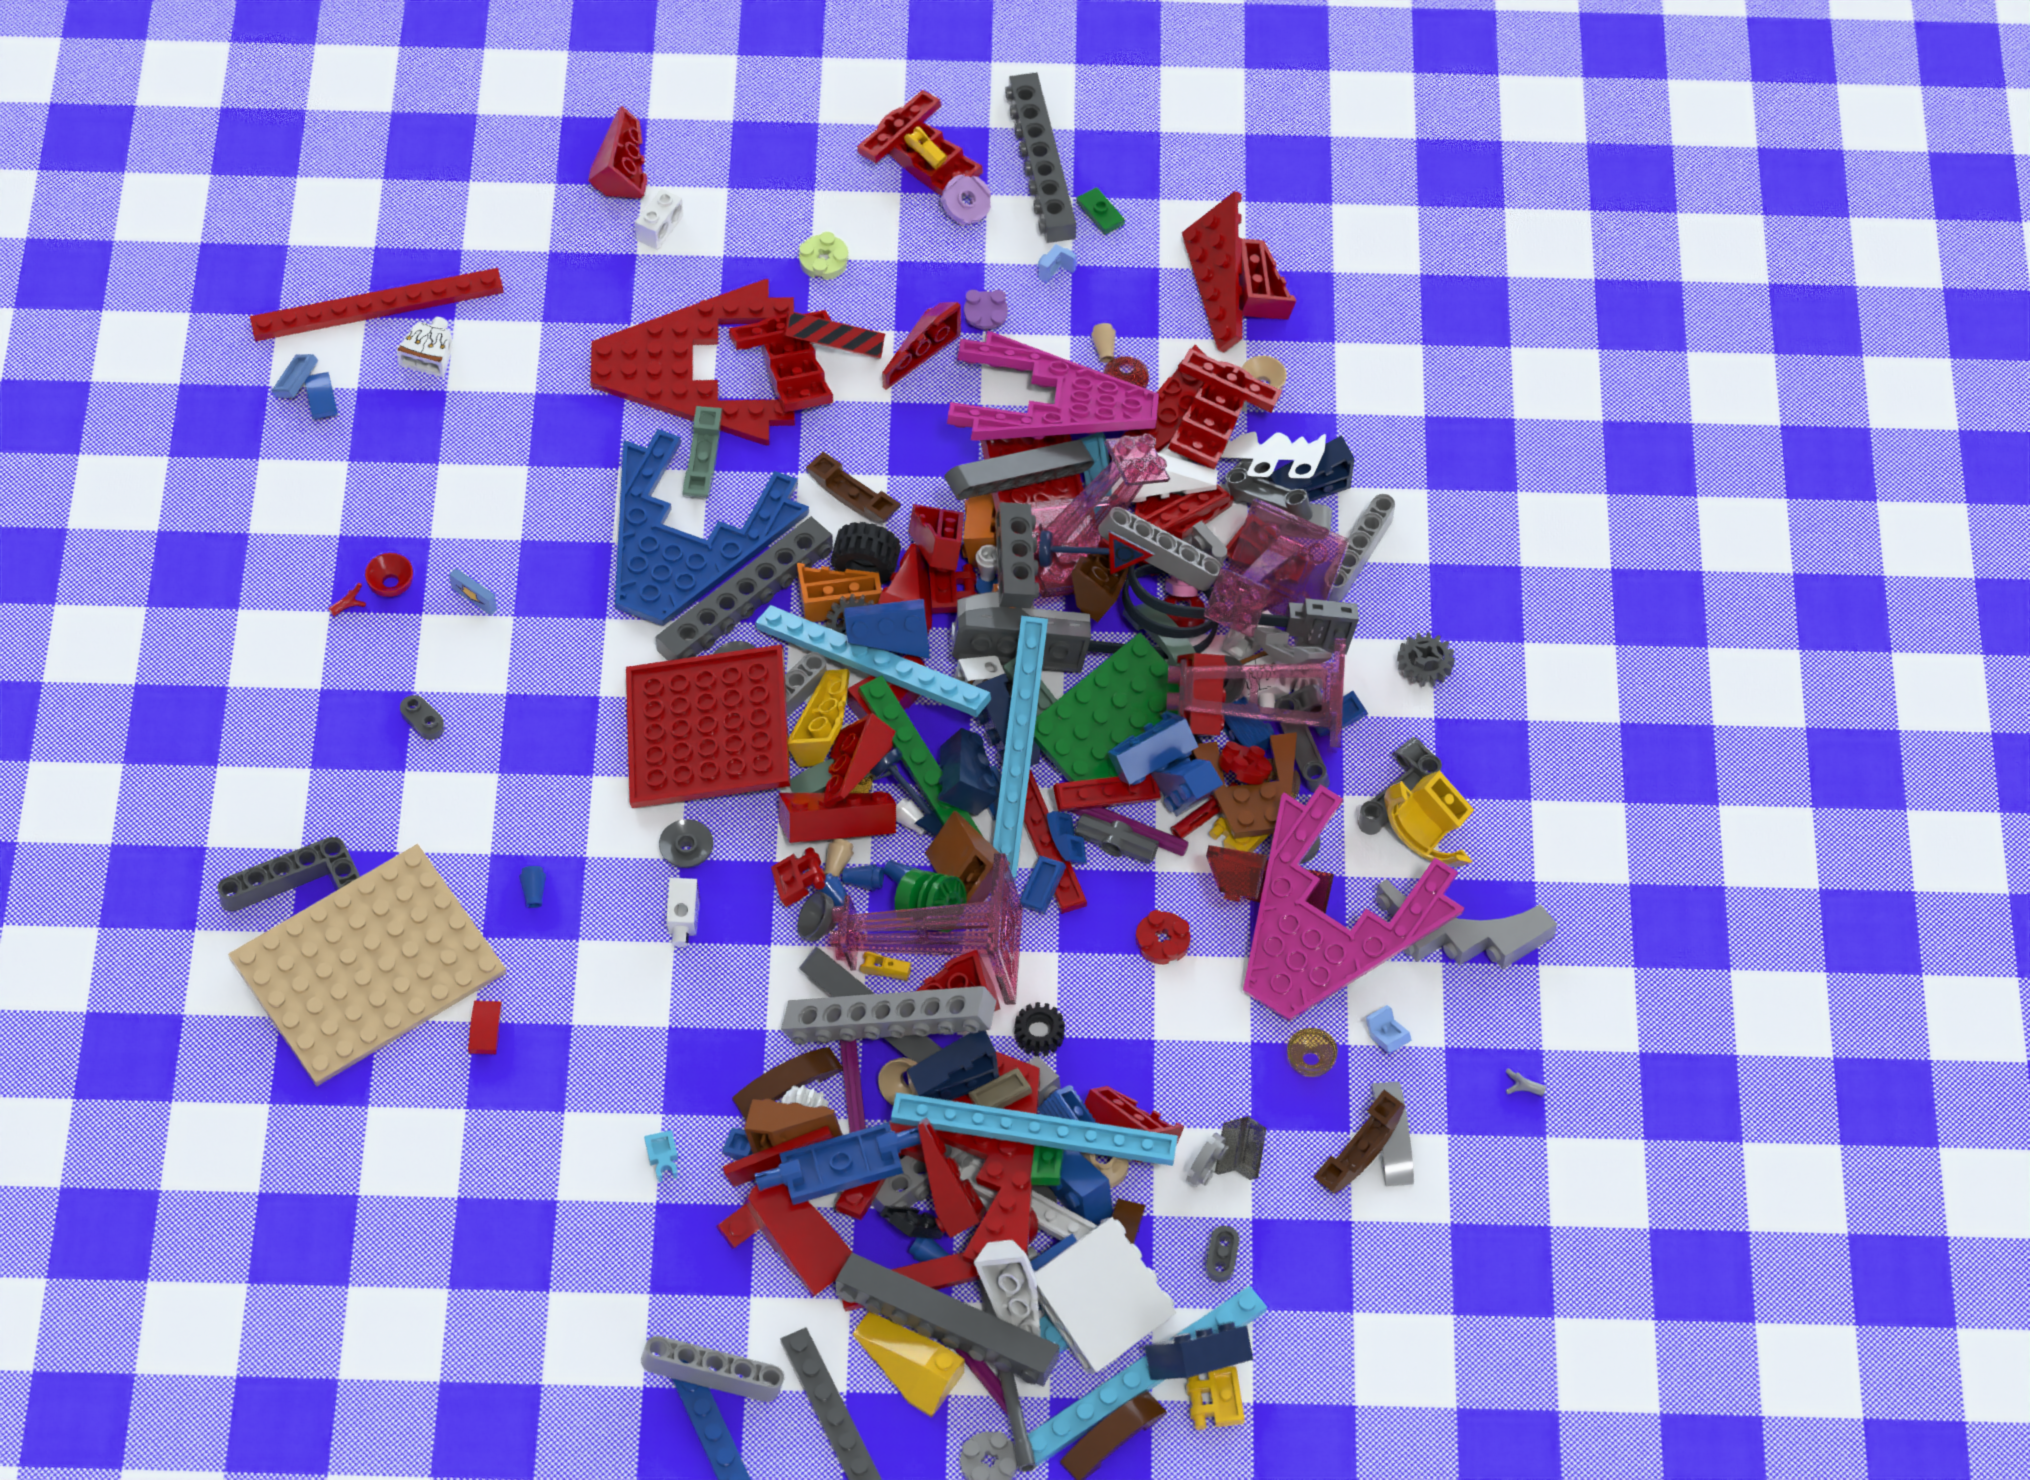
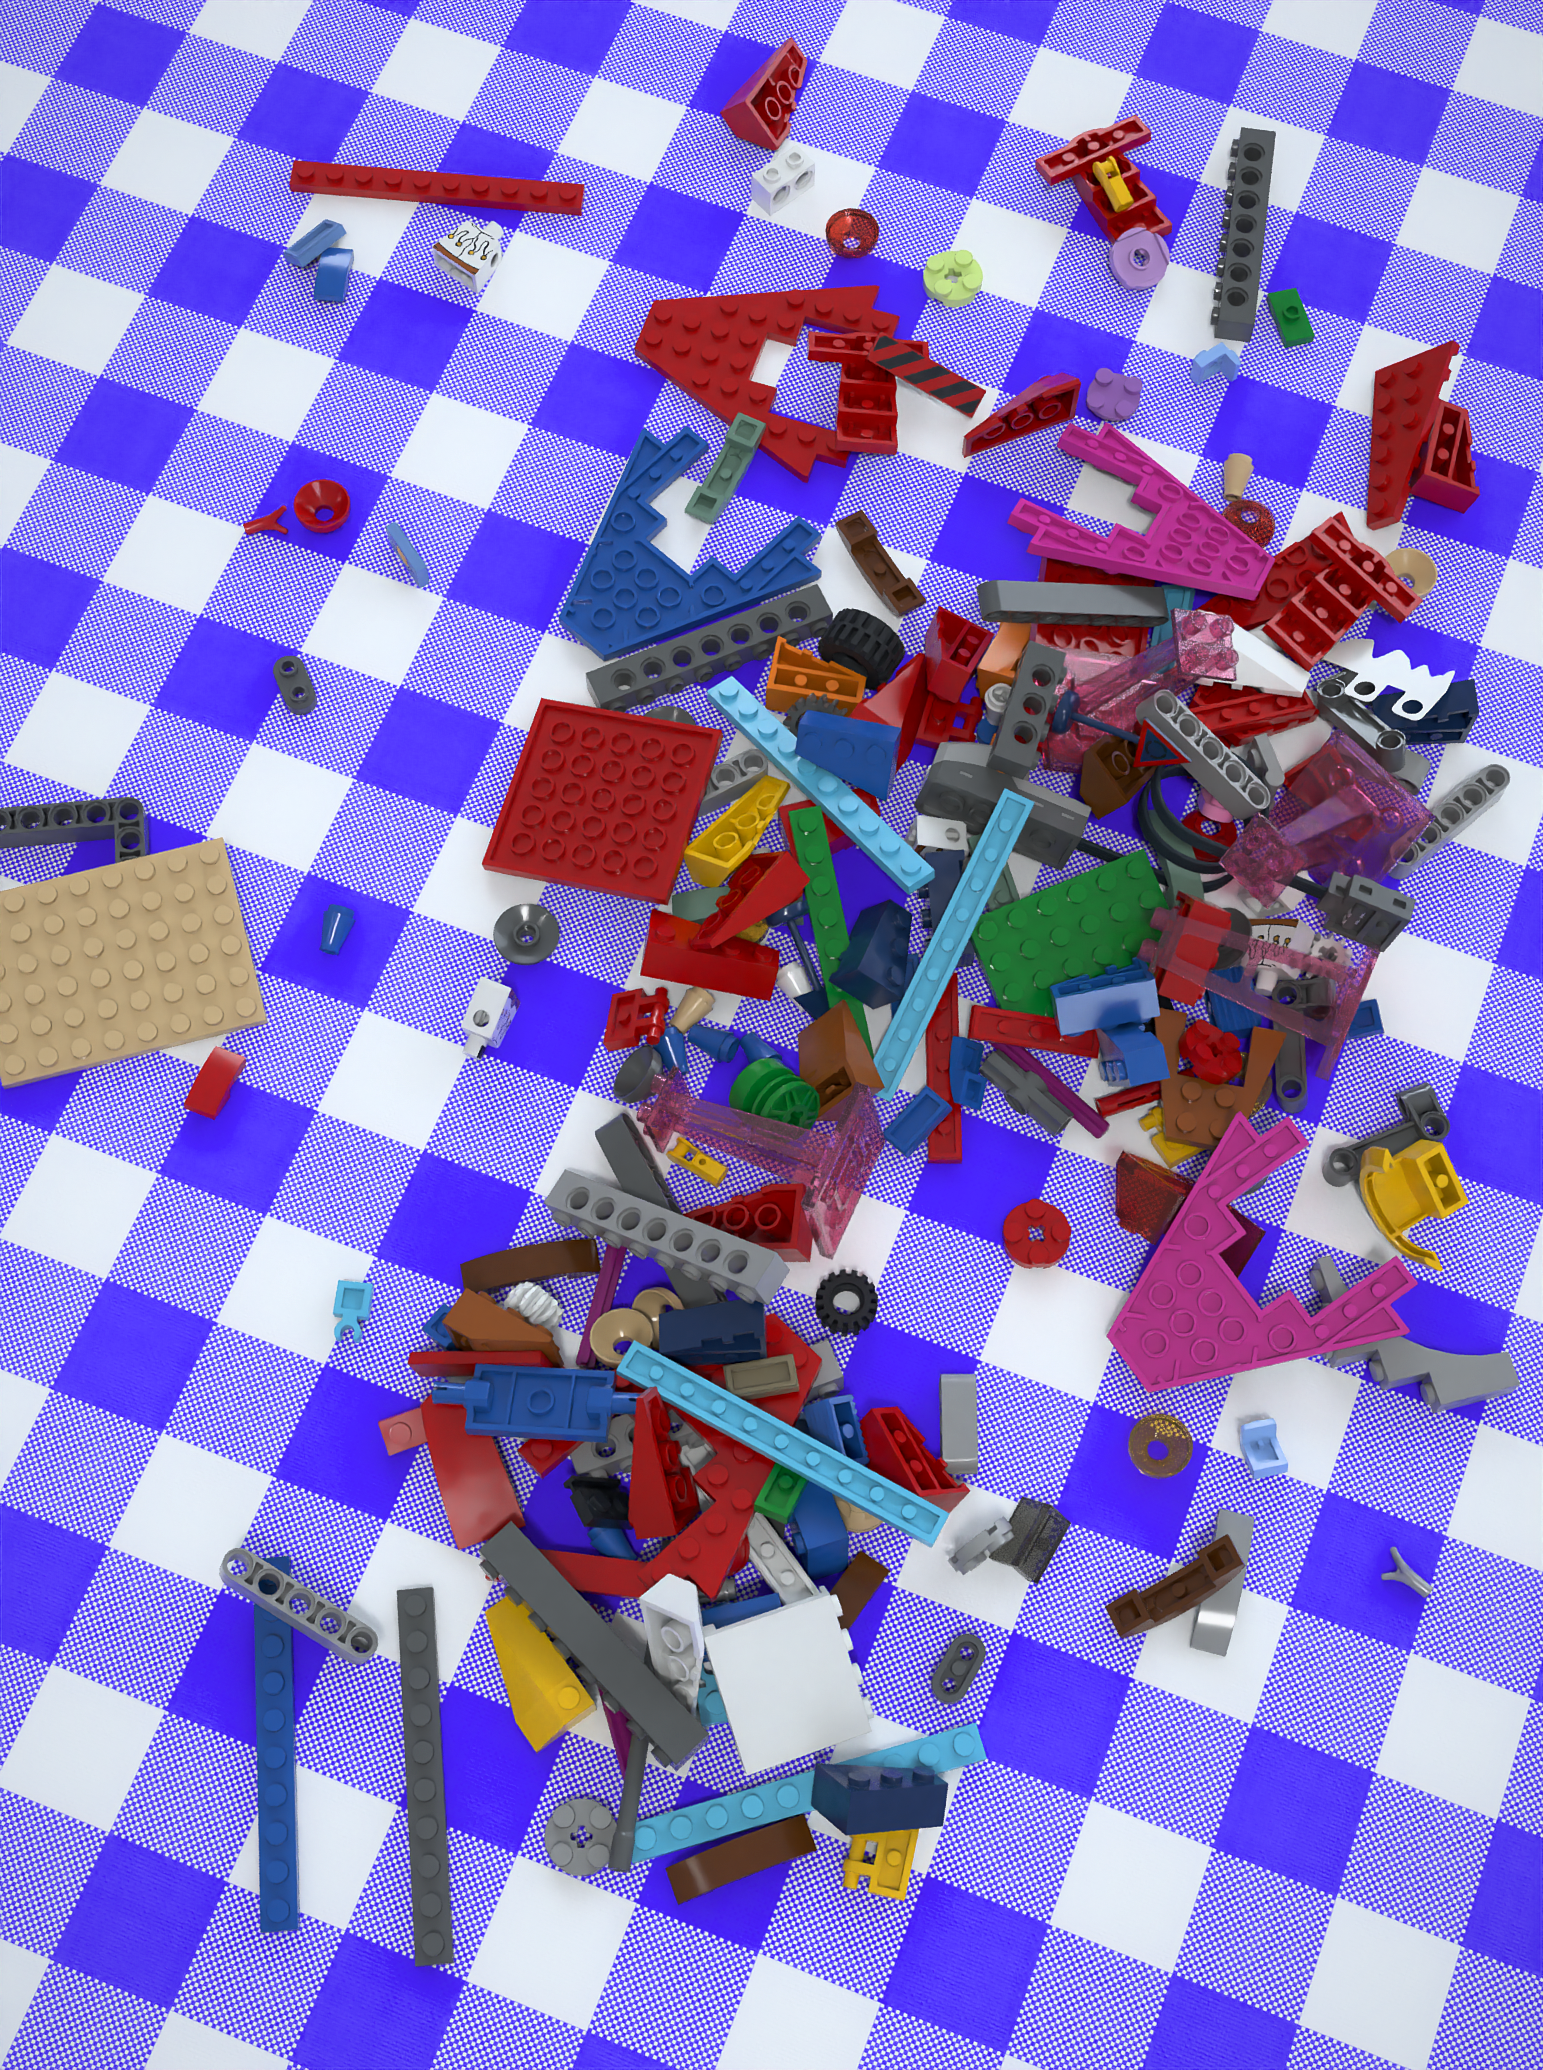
camera: 20 degrees right, 10 degrees up
(729, 237) = (852, 224): none -> clear red piece
(875, 1099) = (619, 1326): none -> tan piece
(1156, 1084) = (958, 1423): none -> light grey beam
(1275, 644) = (1298, 917): light grey slope -> none
(1425, 659) = (1479, 1001): dark grey gear -> none

